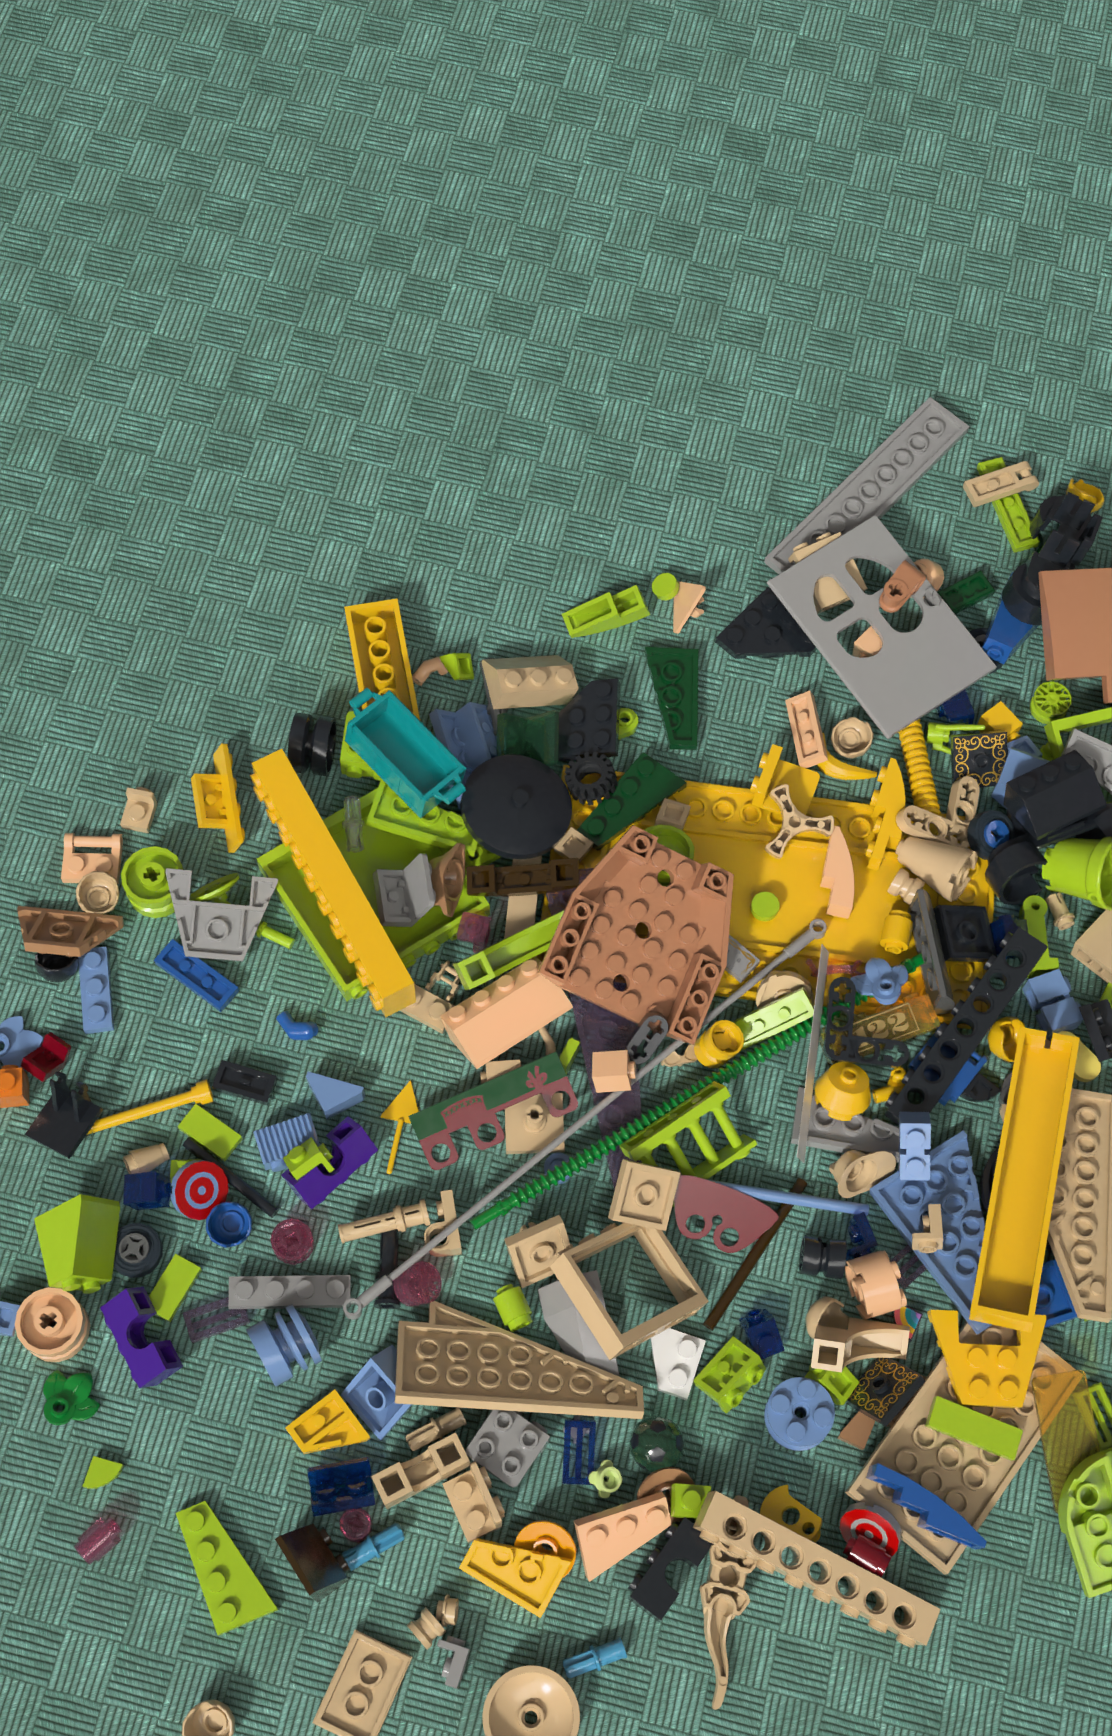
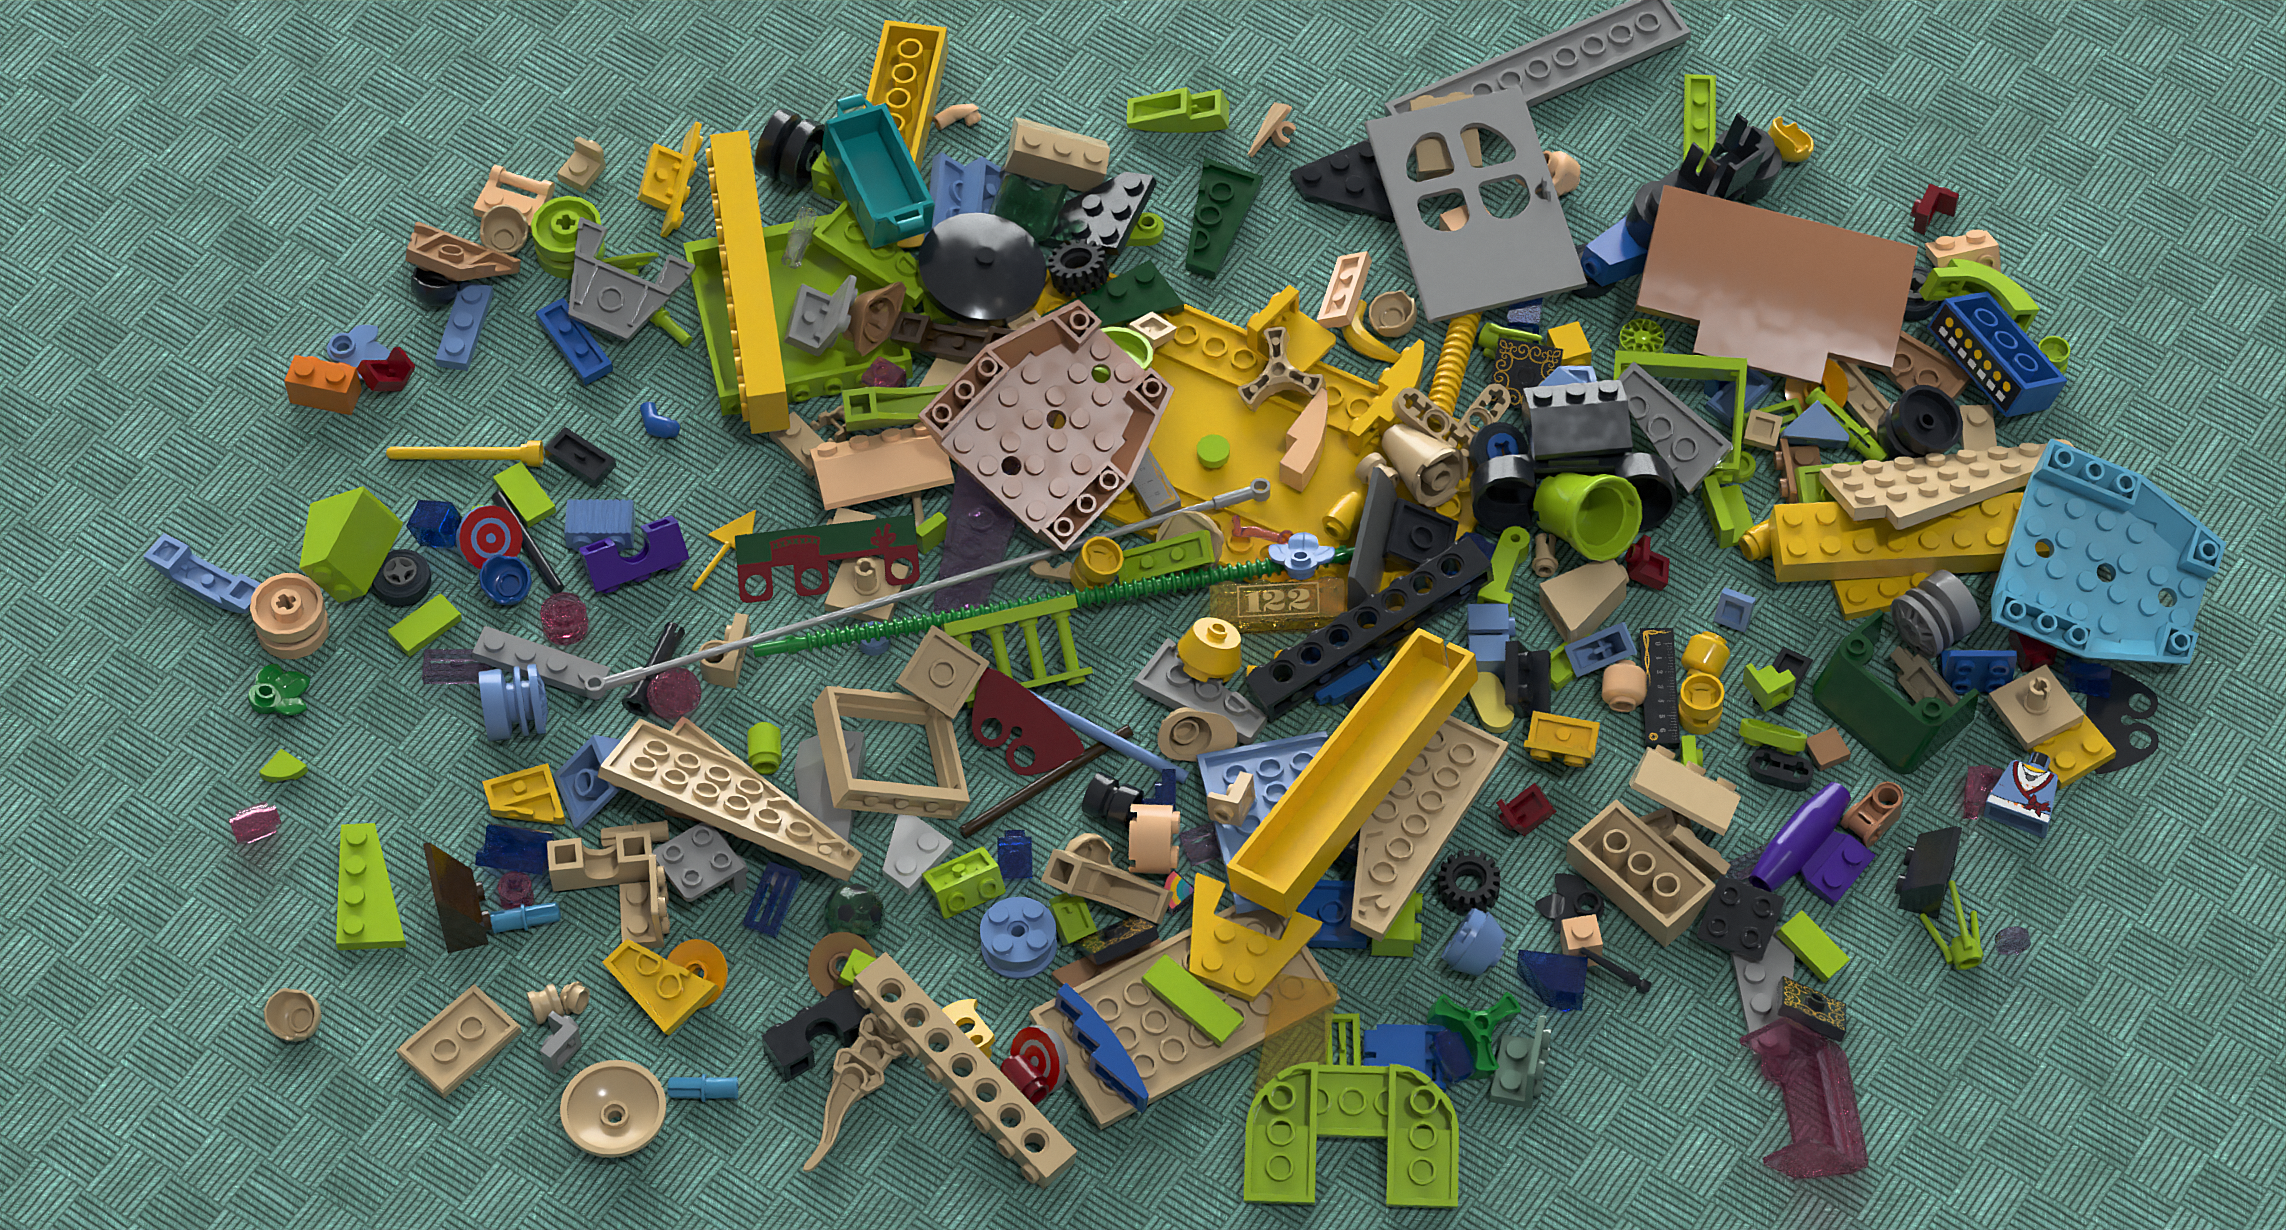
camera: 25 degrees right, 10 degrees down
(64, 1118) = (384, 431): black plate -> none
(126, 1318) = (372, 675): dark purple arch -> none
(145, 1158) = (458, 495): tan cone -> none
(306, 1157) = (606, 534): lime bracket -> none
(334, 1095) = (669, 495): medium blue slope -> none
(399, 1218) = (679, 625): tan pin -> none
(458, 665) = (988, 118): lime slope -> none
(536, 1249) = (798, 692): tan tile -> none
(612, 1071) = (965, 550): light nougat brick -> none
(613, 1481) = (796, 927): yellowish green plate -> none
(619, 1531) = (778, 979): light nougat wing -> none
(652, 1041) = (1011, 524): black beam -> none
(665, 586) = (1258, 103): lime tile -> none
(802, 1143) = (1189, 598): white sticker -> none
(852, 1042) = (1237, 601): black beam -> none
(901, 587) = (1512, 164): nougat piece -> none
(914, 1145) = (1254, 700): piece -> none
(967, 592) = (1598, 205): dark green plate -> none
(1000, 484) = (1695, 100): tan plate -> none

